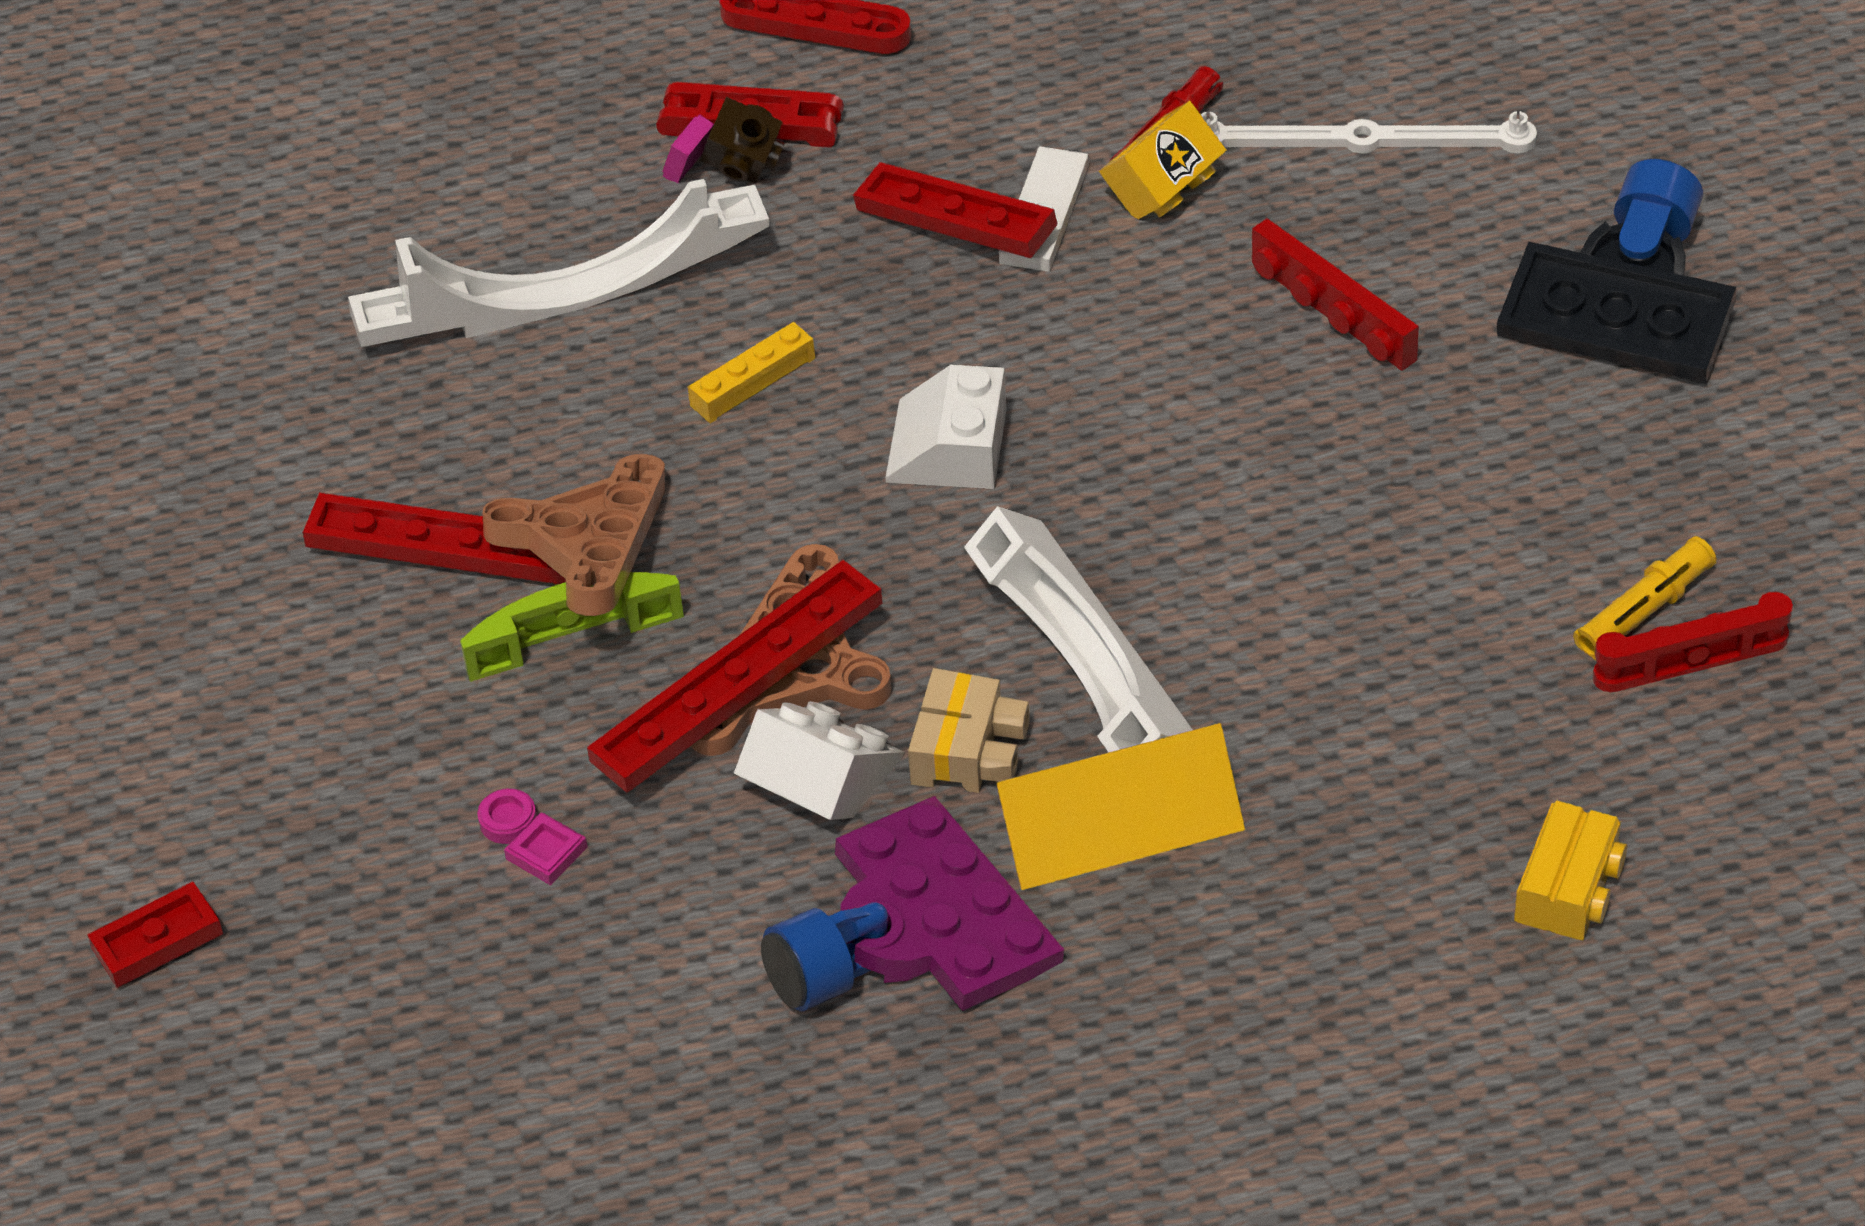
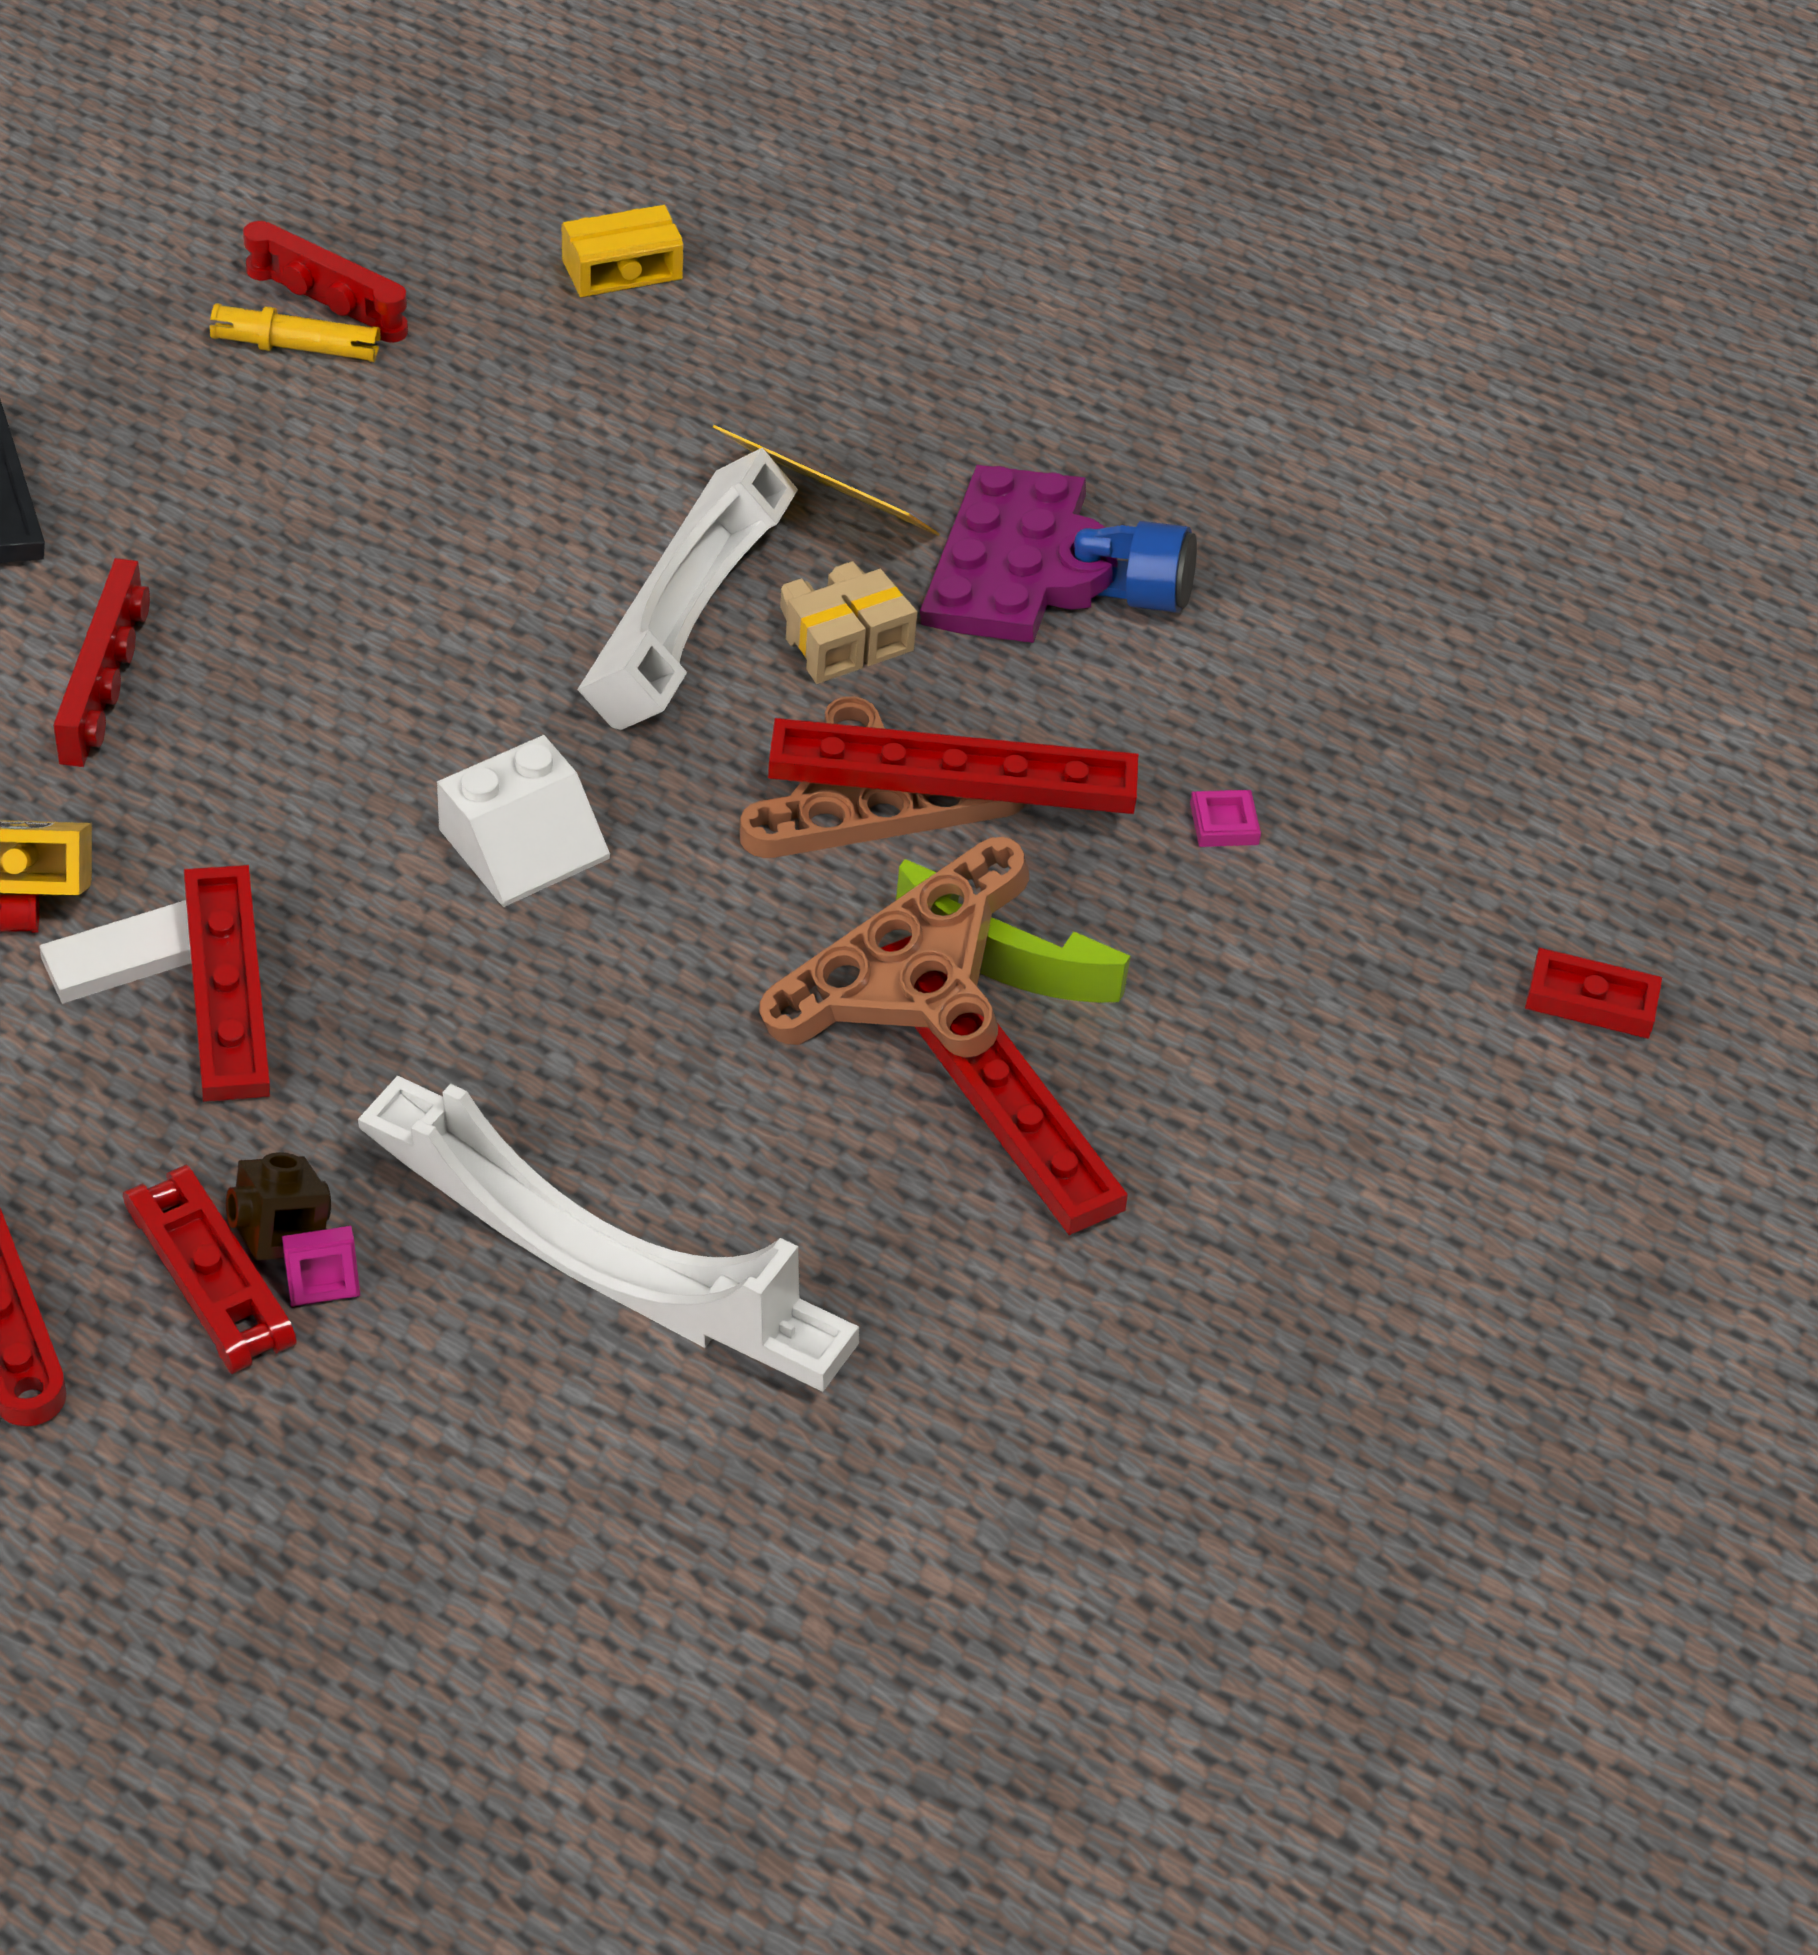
camera: 140 degrees left, 0 degrees up
(505, 814) = (1225, 863): dark pink tile -> none
(751, 372) = (579, 1019): yellow piece -> none
(816, 758) = (968, 681): white slope -> none

